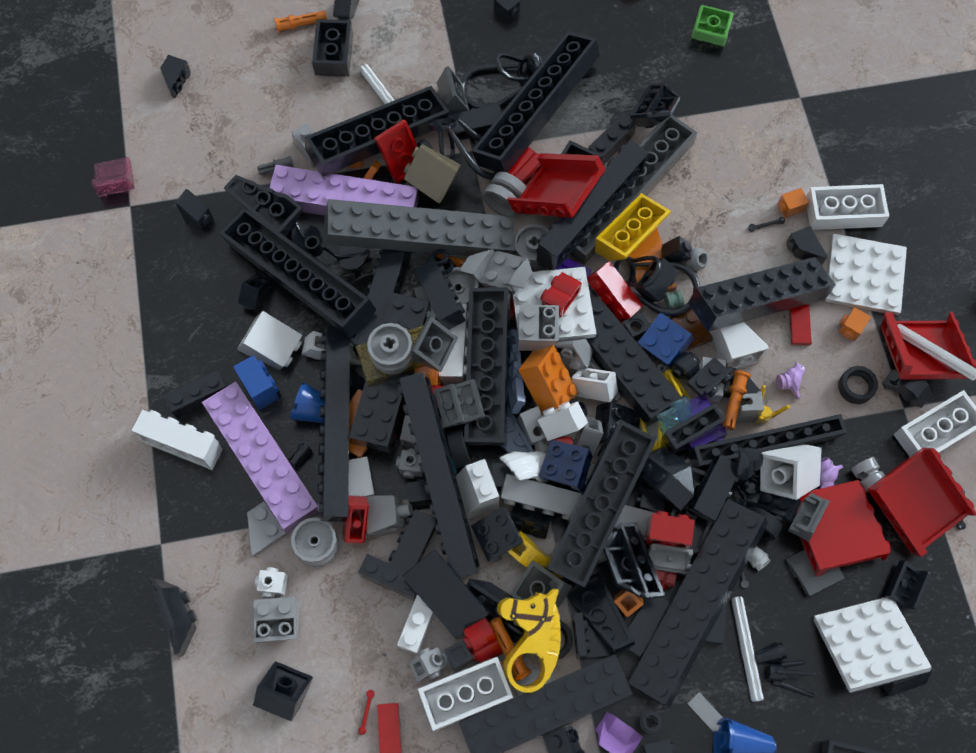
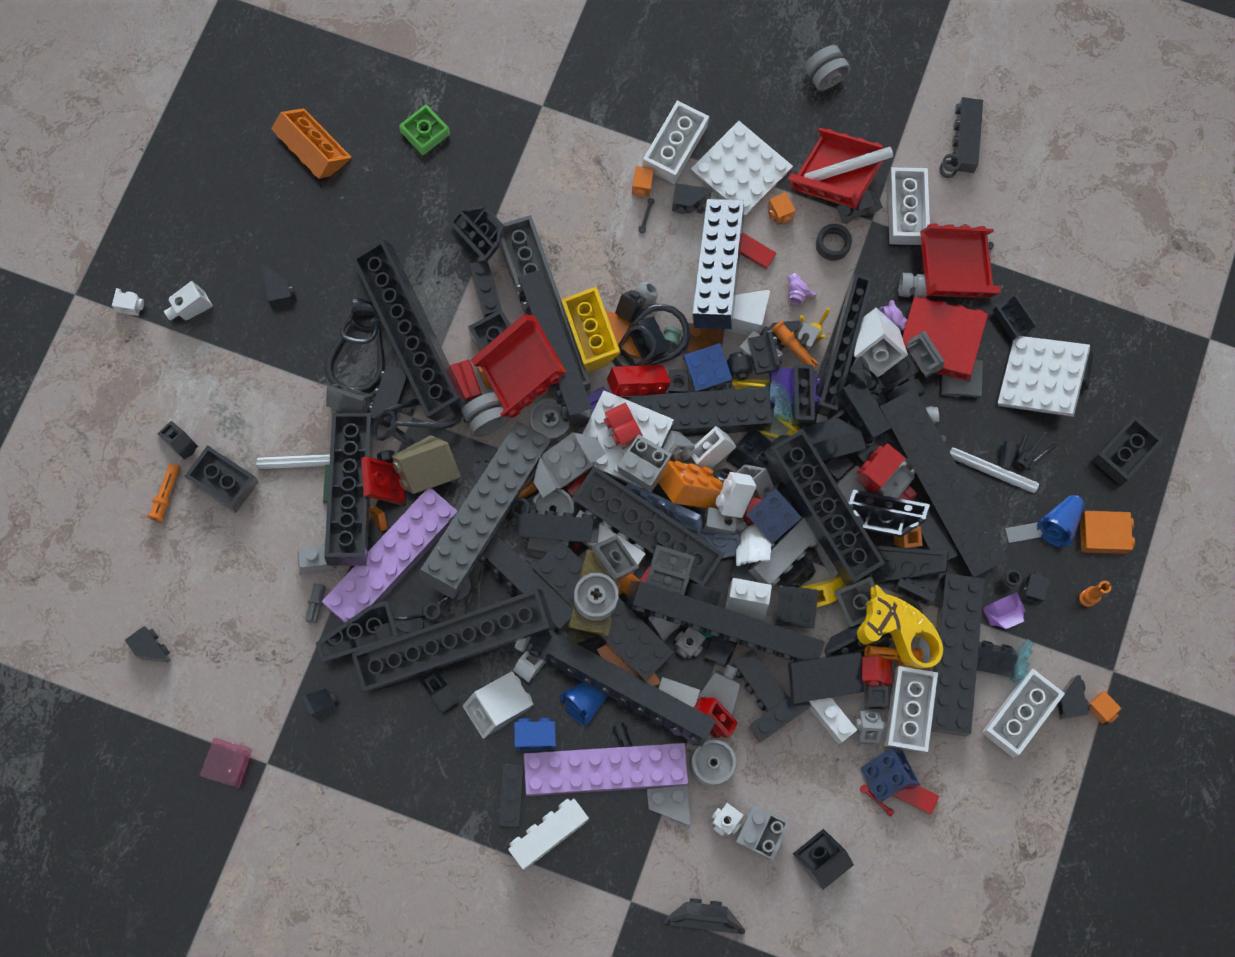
camera: 65 degrees left, 5 degrees up
(395, 709) = (889, 774): none -> dark blue bracket

